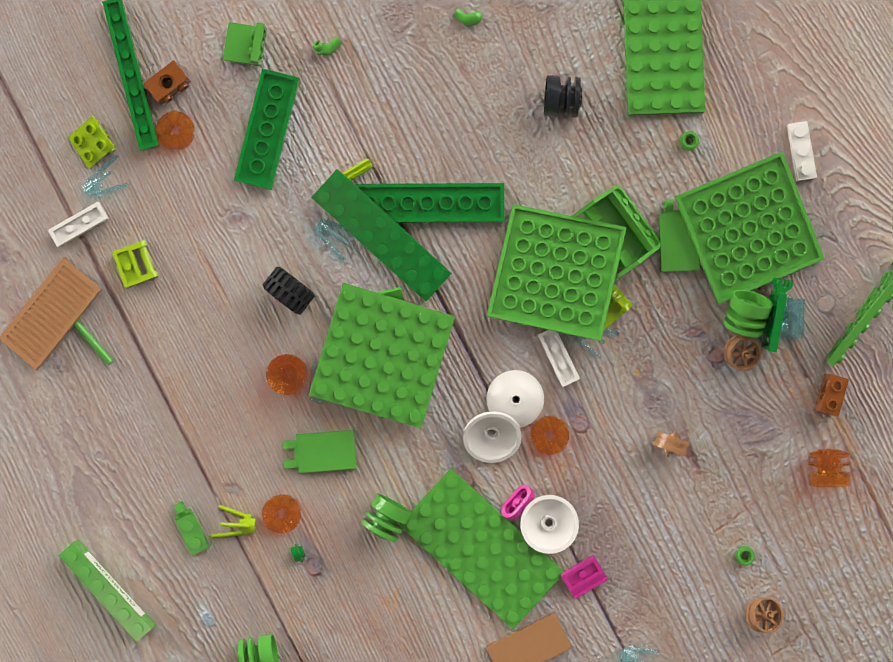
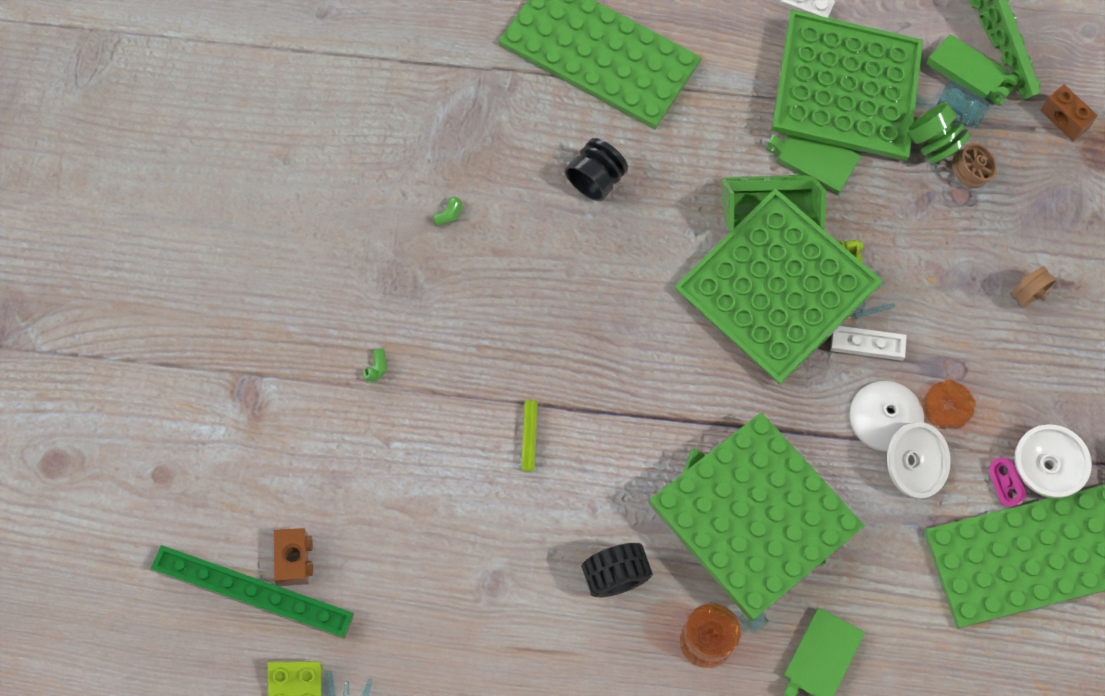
camera: 60 degrees left, 20 degrees down
(164, 130) = (338, 574): clear orange plate -> none
(245, 43) = (311, 446): bright green bracket -> none
(266, 129) = (420, 485): green plate -> none
(324, 228) = (569, 491): clear light blue plant -> none
(381, 235) = (618, 436): green plate -> none
(386, 518) = (945, 630): bright green wheel -> none
(439, 201) = (613, 372): green plate -> none
(693, 136) = (722, 83): bright green plate -> none
(774, 321) = (973, 118): green tile -> none
(823, 307) = (972, 70): none -> bright green tile

